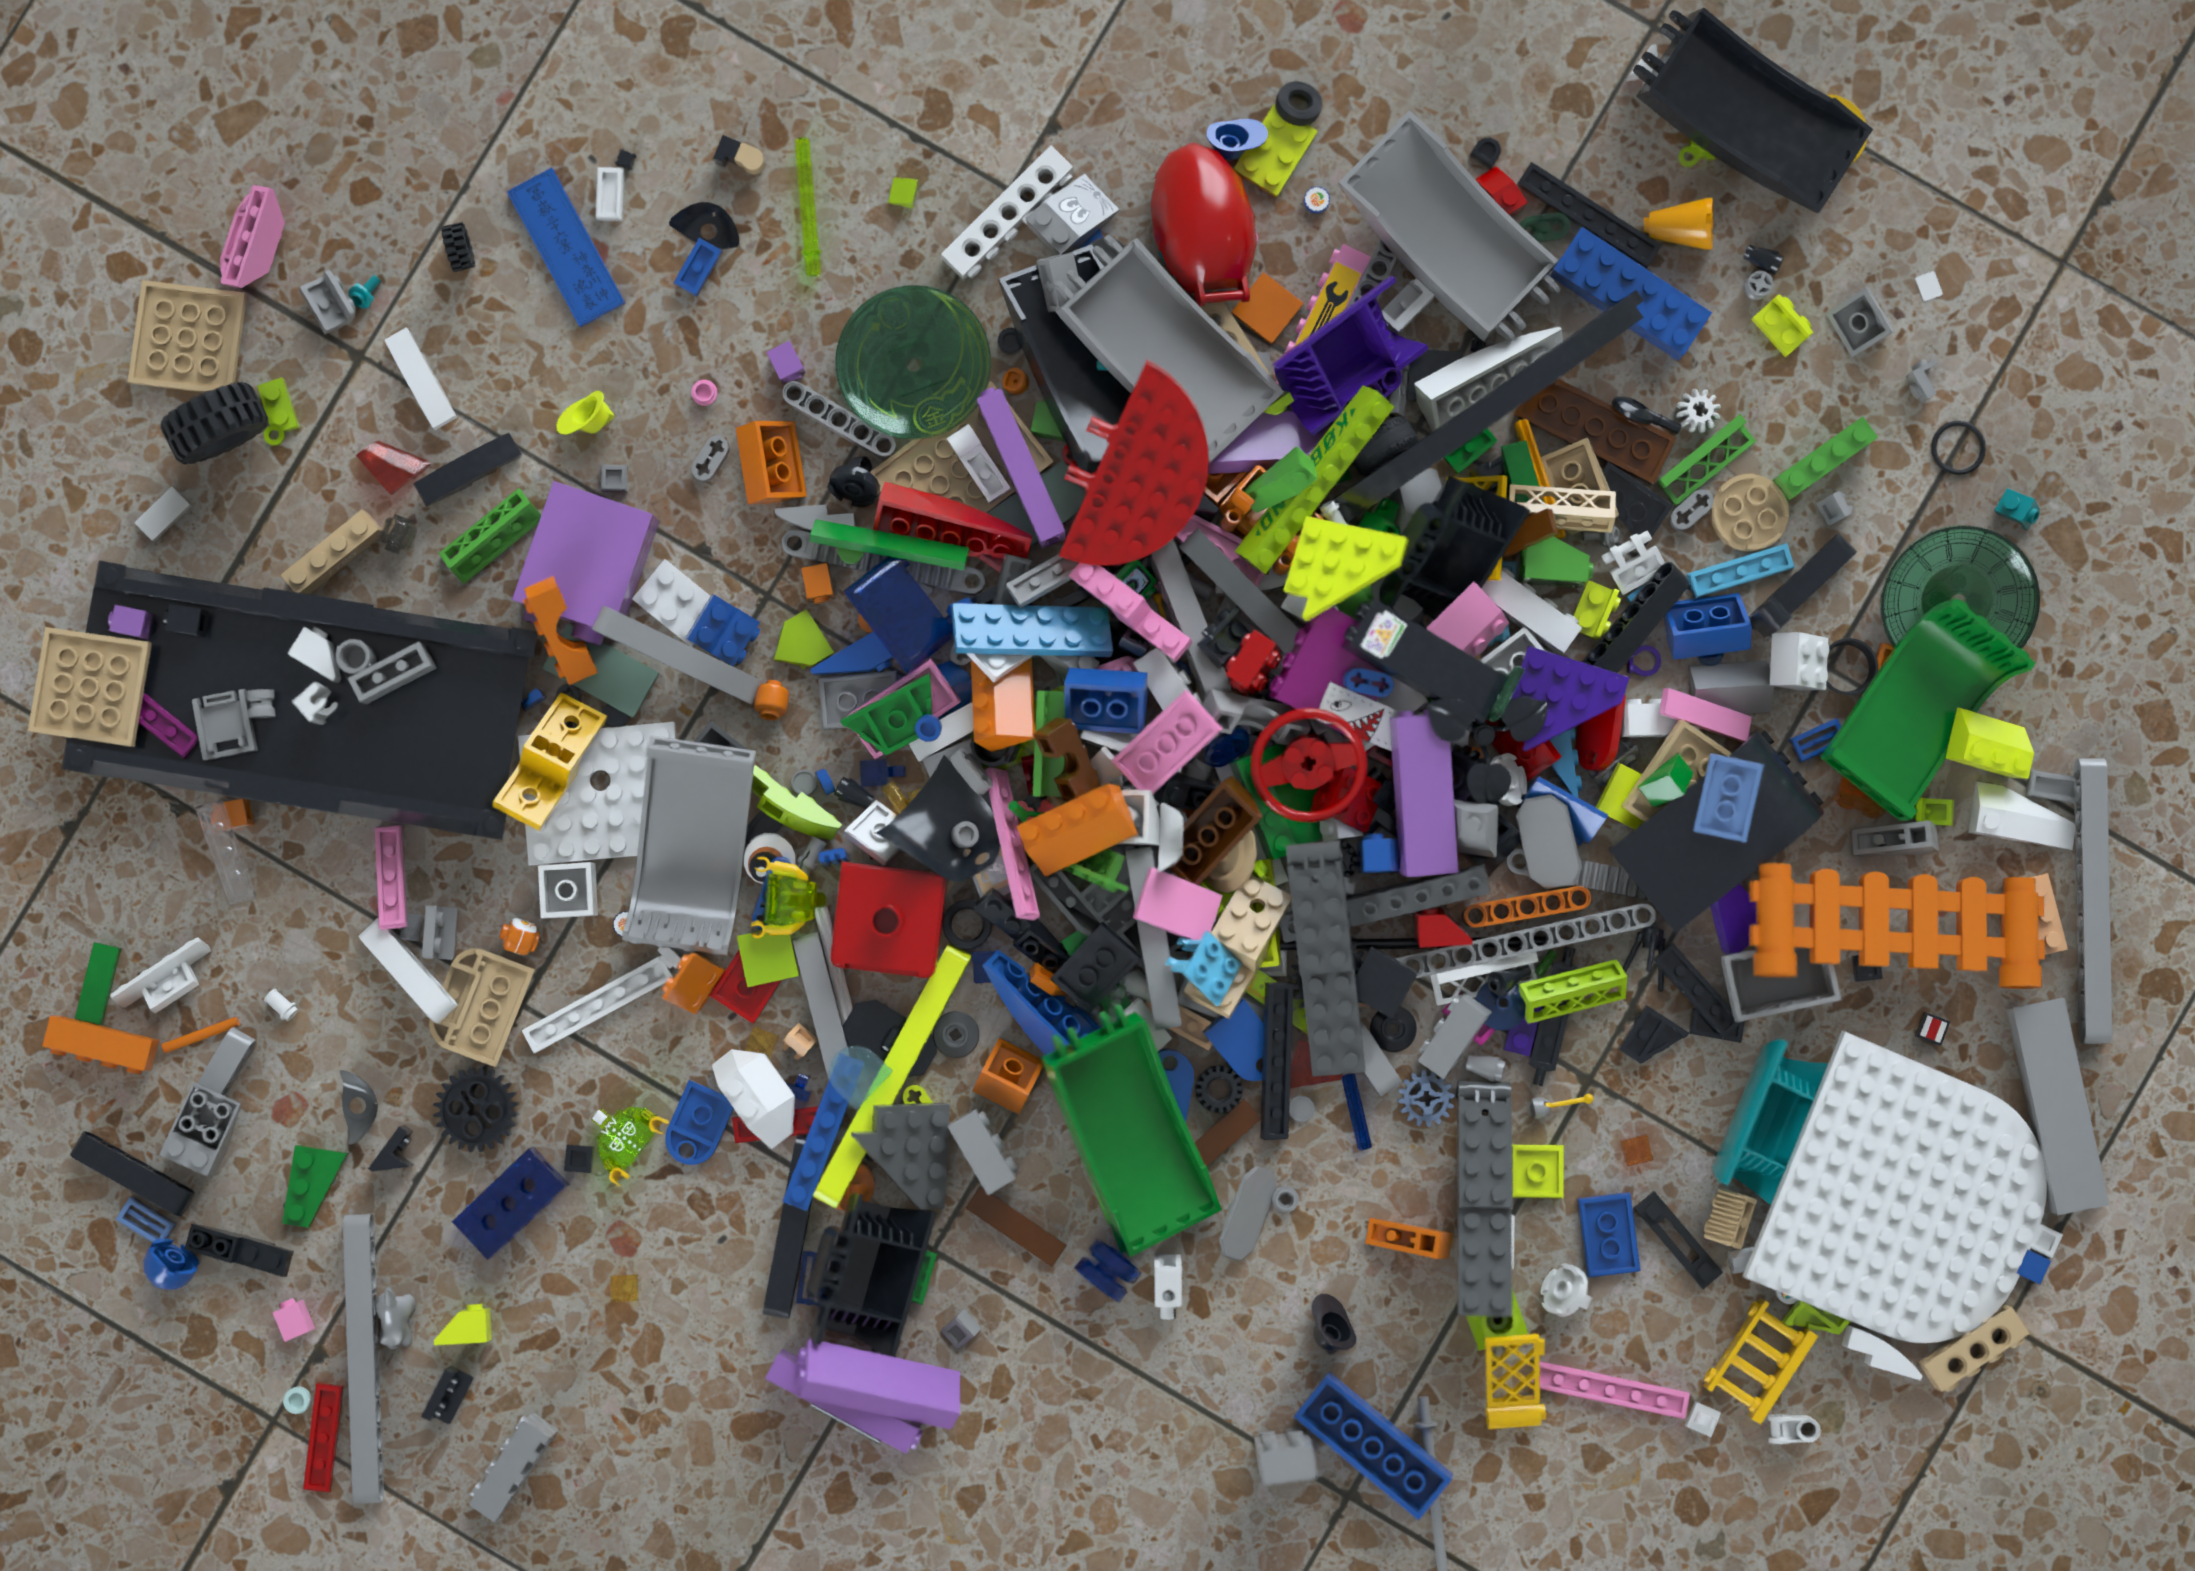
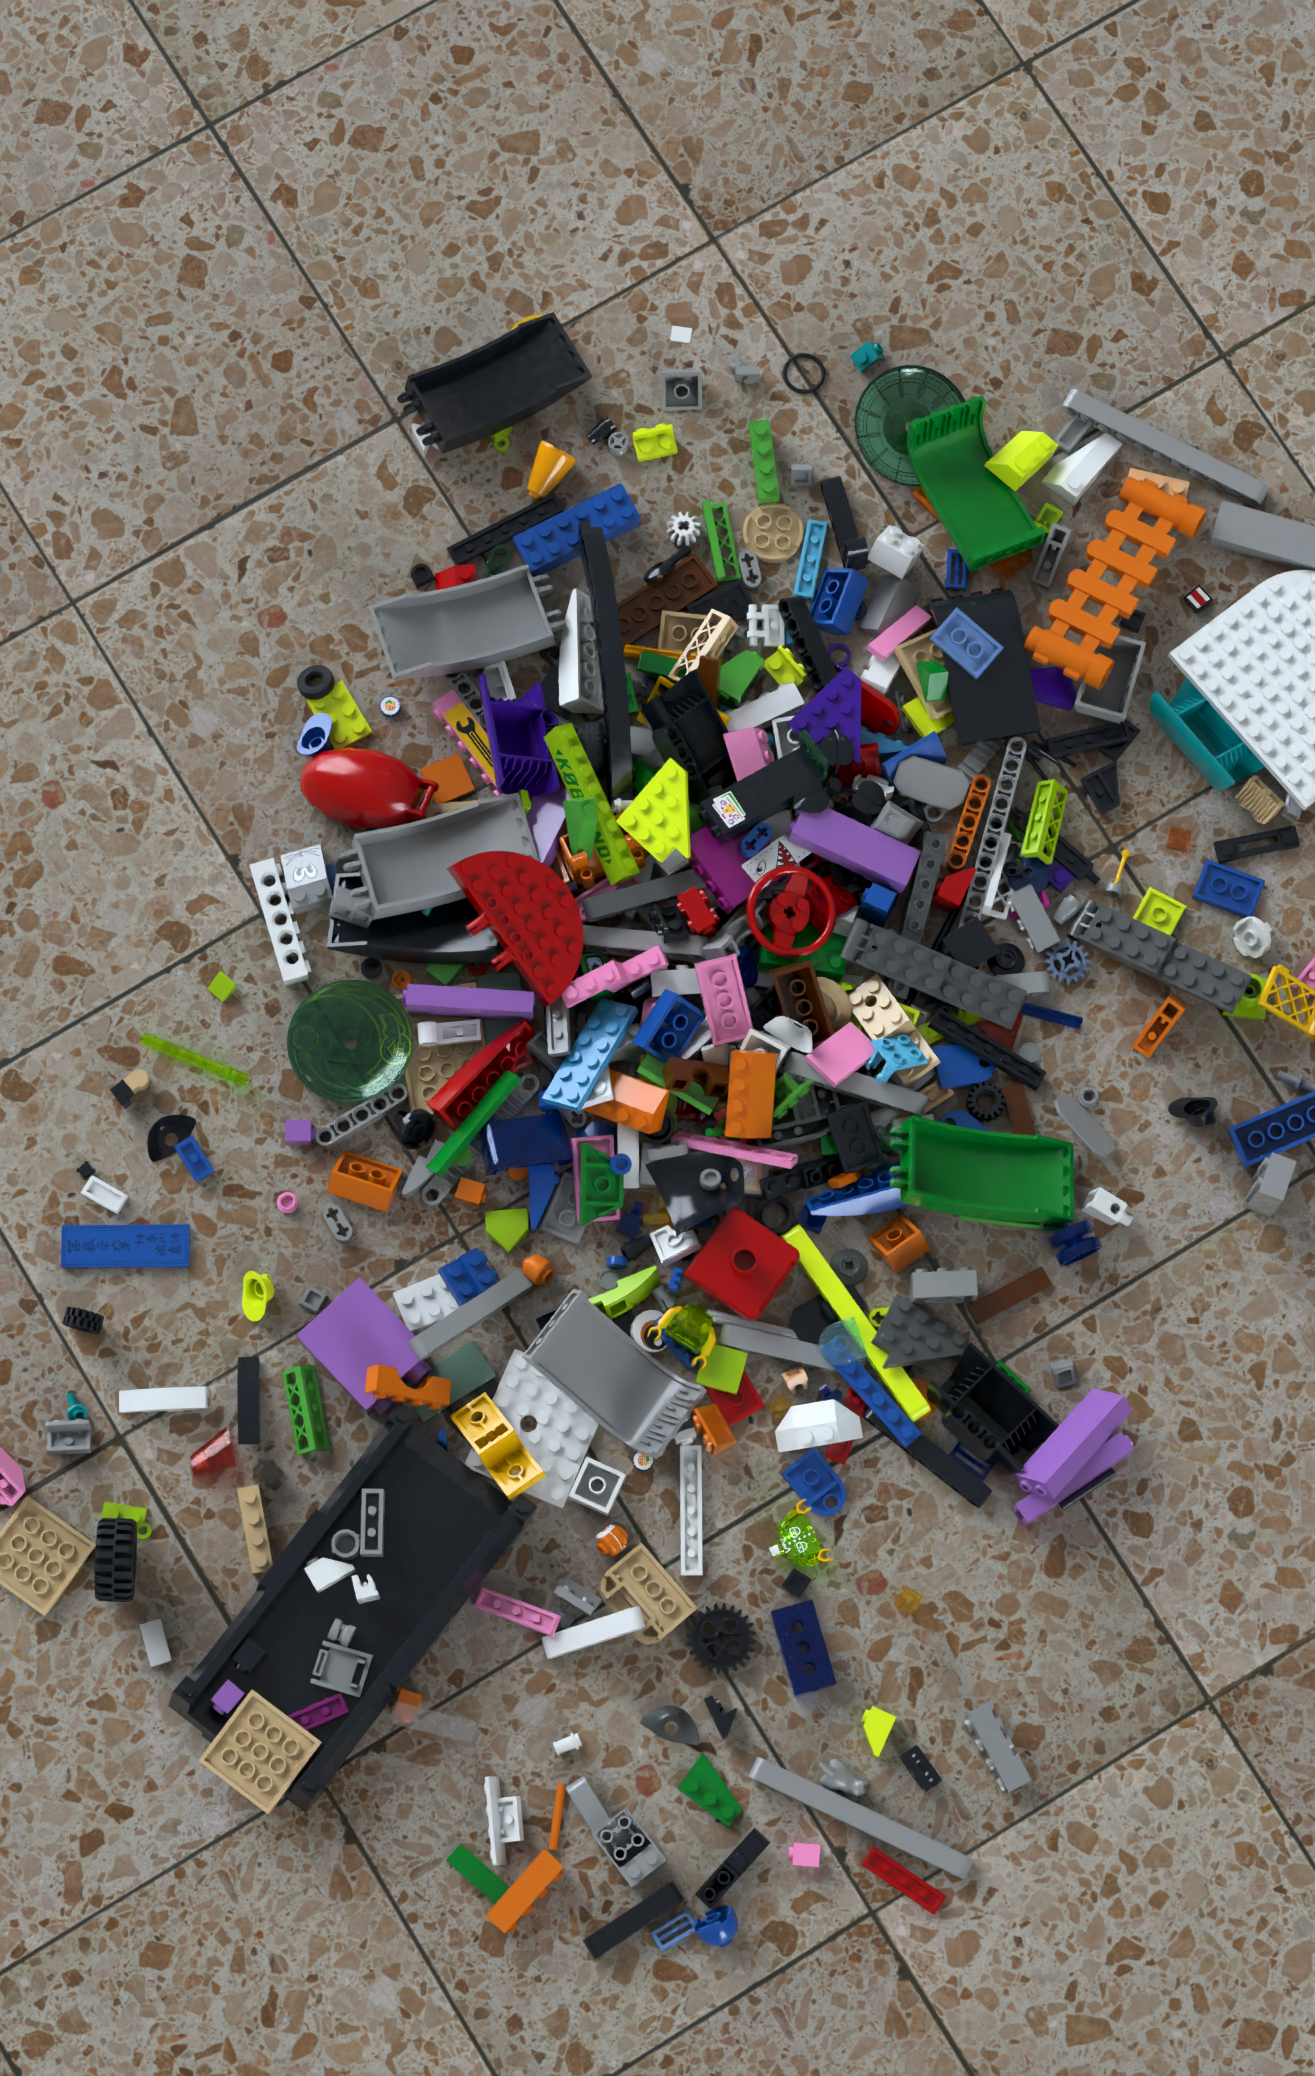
camera: 65 degrees left, 10 degrees down
(297, 1400) = (865, 1885): light aqua tile -> none
(1871, 658) = (917, 504): black tyre -> none

